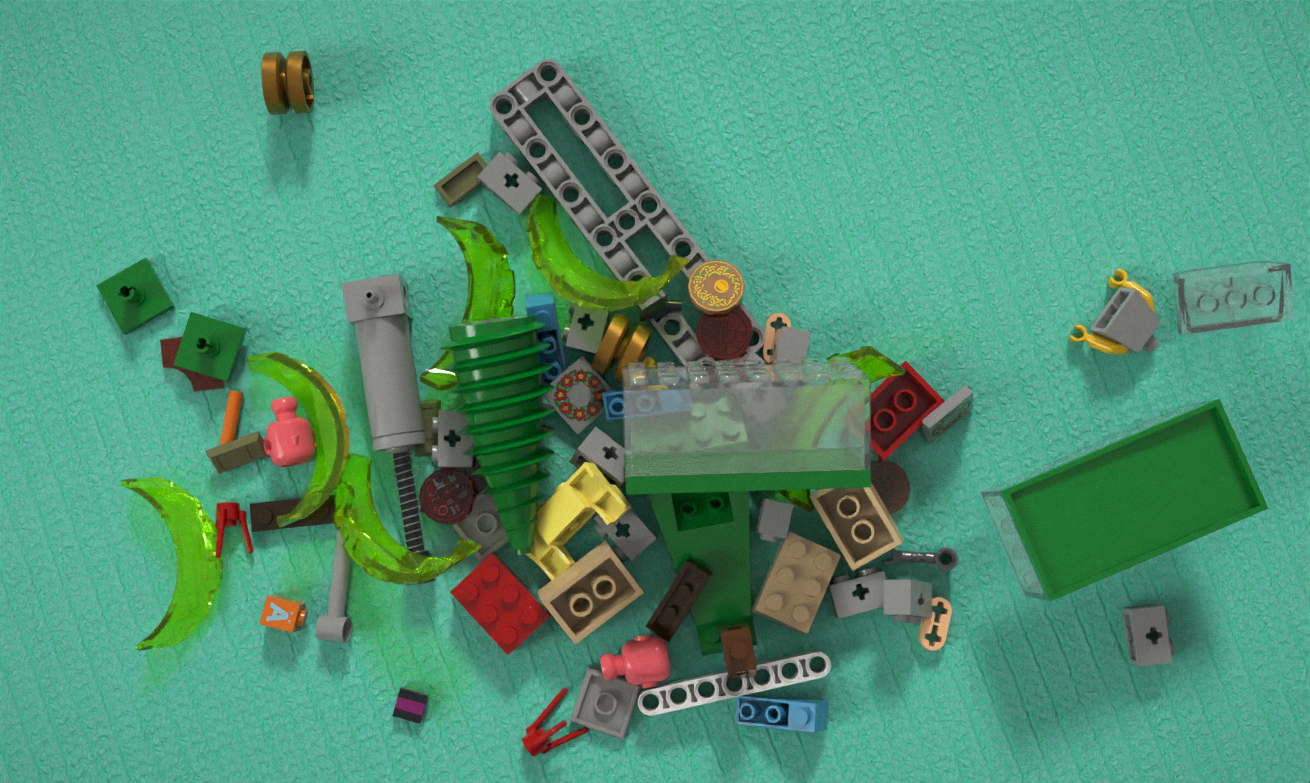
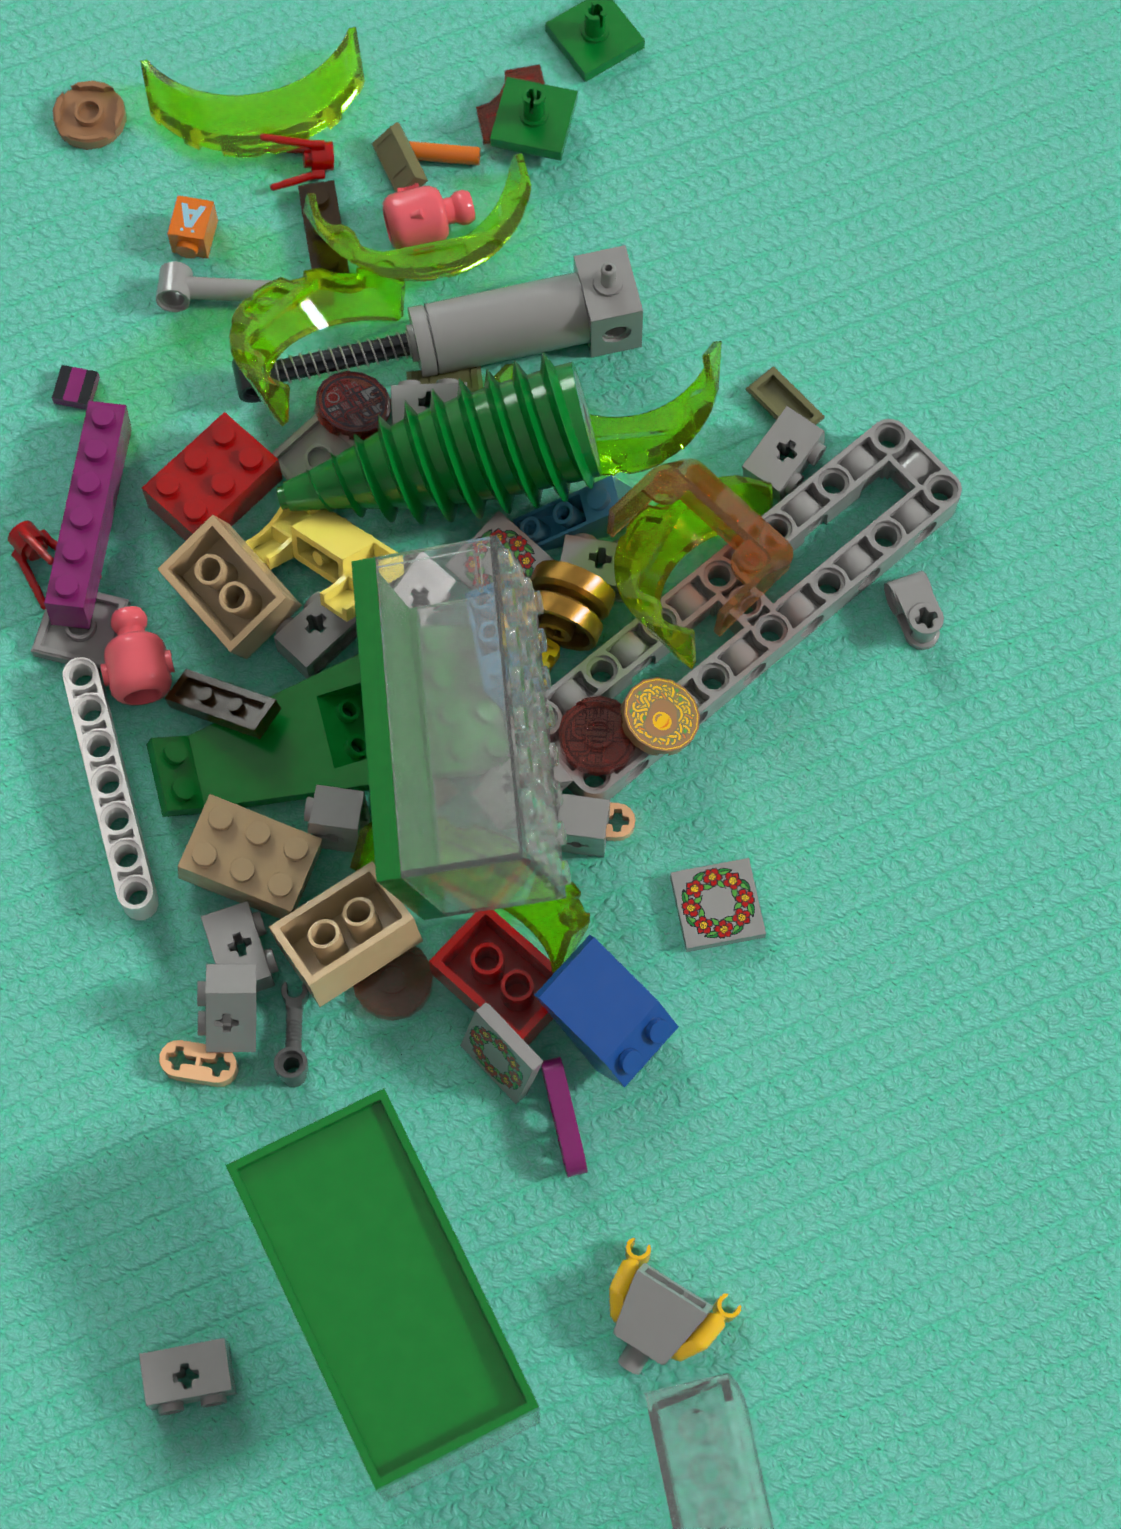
camera: 90 degrees right, 15 degrees down
(172, 684) = (89, 125): none -> medium nougat tile
(287, 82) = (889, 175): pearl gold wheel -> none
(522, 695) = (88, 515): none -> magenta brick
(540, 247) = (760, 550): none -> clear orange windscreen
(631, 102) = (915, 609): none -> light grey piece
(660, 308) = (625, 650): black bar -> none
(738, 651) = (150, 772): reddish brown torso -> none
(782, 713) = (67, 859): dark azure slope -> none
(842, 261) = (717, 905): none -> tile
(927, 340) = (606, 1012): none -> blue slope
(987, 376) = (564, 1117): none -> magenta beam

